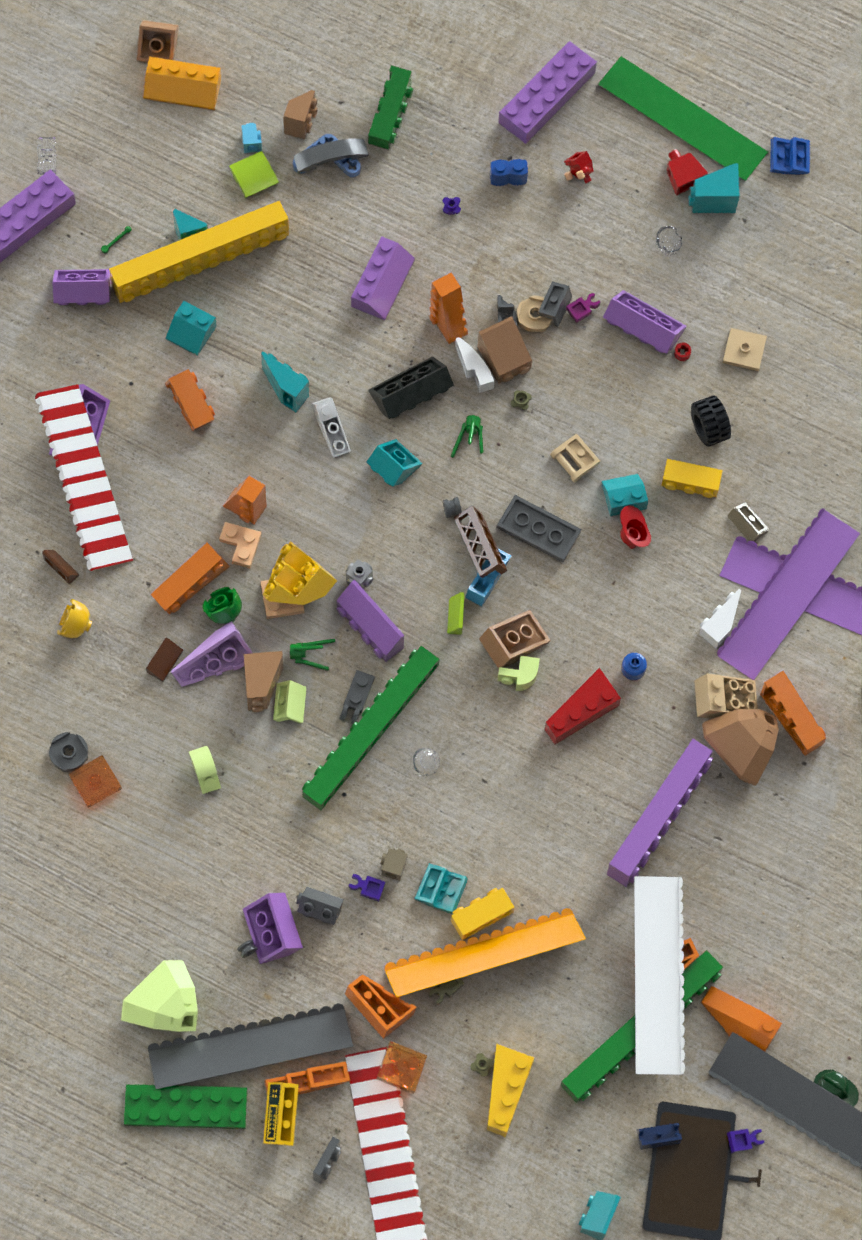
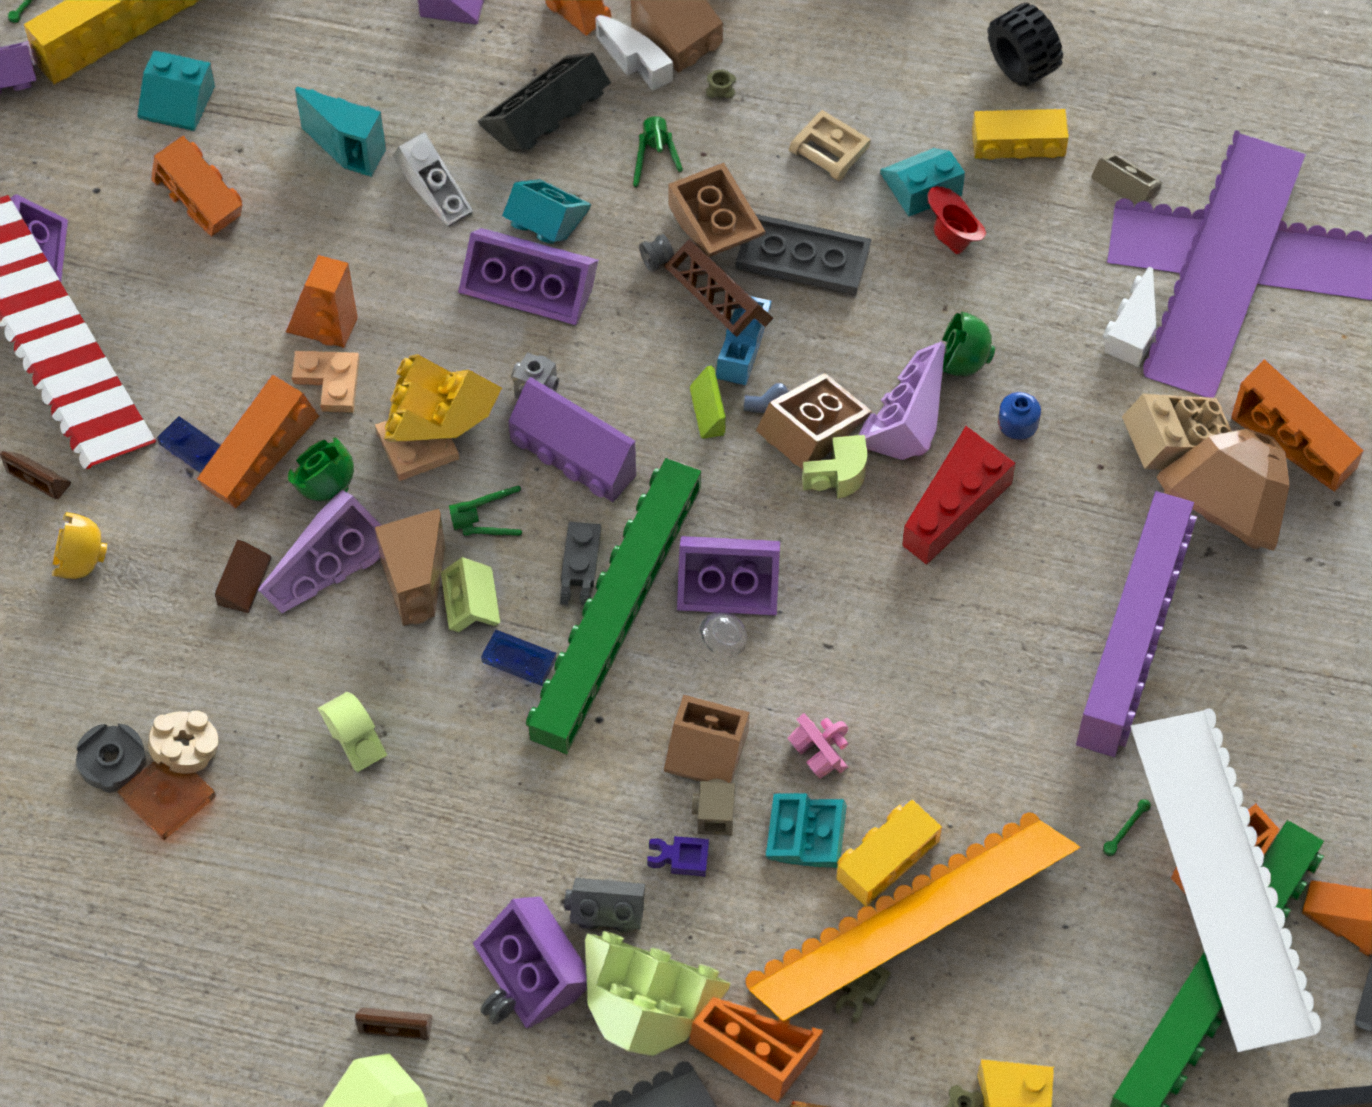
camera: 10 degrees left, 10 degrees down
(102, 759) = (183, 725): none -> tan plate
(152, 568) = (188, 443): none -> clear blue plate
(189, 943) = (393, 1023): none -> reddish brown slope
(308, 747) = (519, 657): none -> clear blue plate
(327, 962) = (644, 996): none -> yellowish green brick
(372, 504) = (527, 275): none -> medium lavender slope
(399, 824) = (706, 740): none -> medium nougat slope
(438, 725) = (728, 575): none -> medium lavender slope
(465, 849) = (827, 758): none -> bright pink hips
(492, 490) = (713, 210): none -> medium nougat slope
(494, 619) = (760, 404): none -> sand blue arm
(570, 650) = (910, 410): none -> lavender wedge
(606, 939) = (1110, 847): none -> green hinge
(616, 615) = (967, 345): none -> green cylinder

